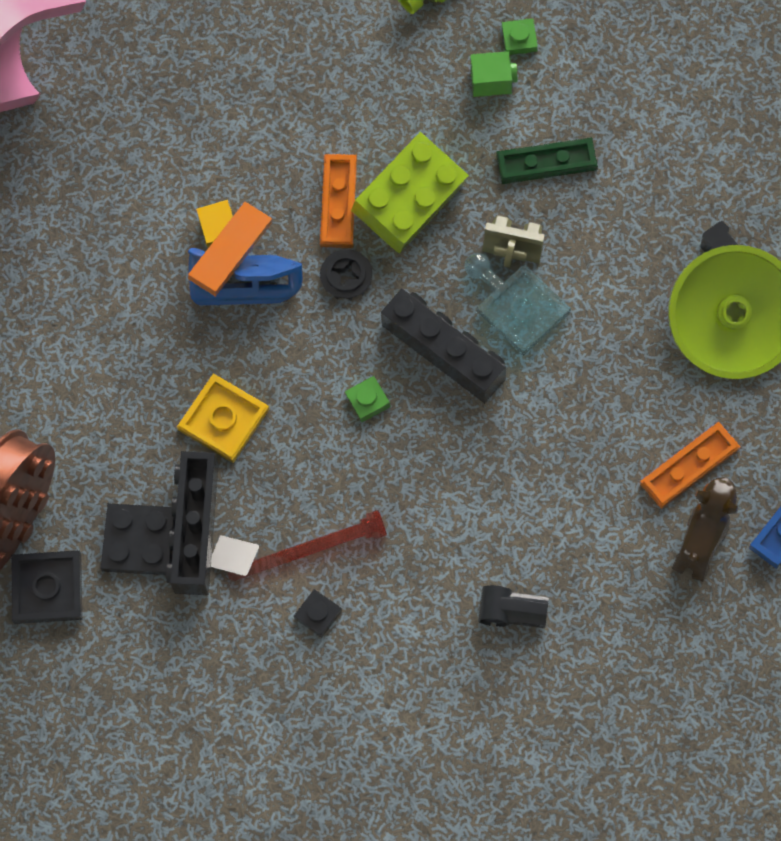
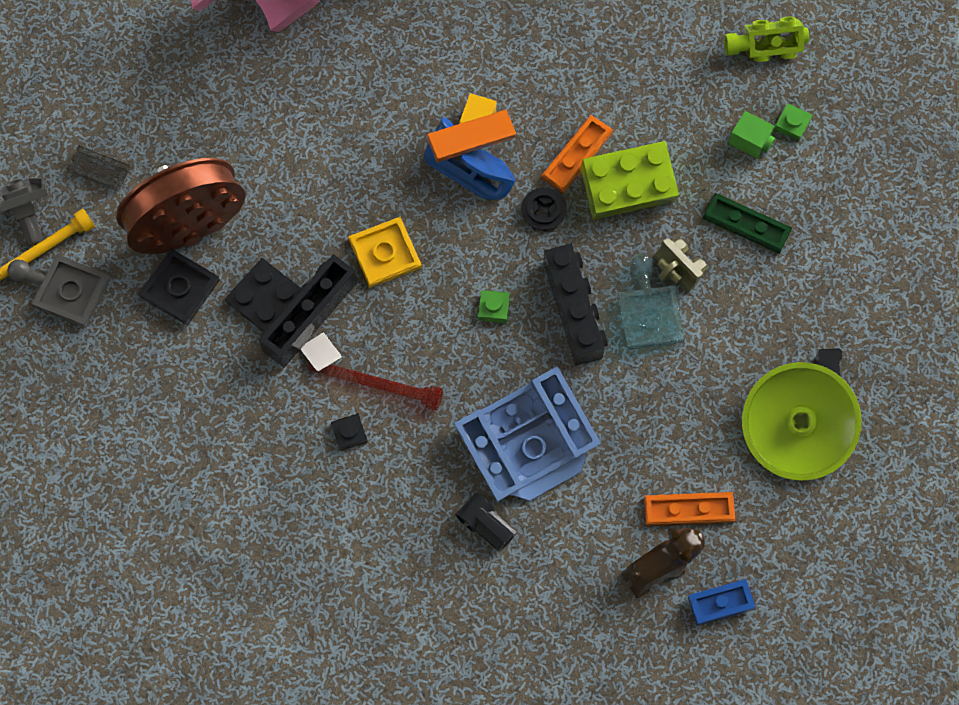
camera: 30 degrees right, 0 degrees up
(496, 499) = (529, 438): none -> medium blue slope

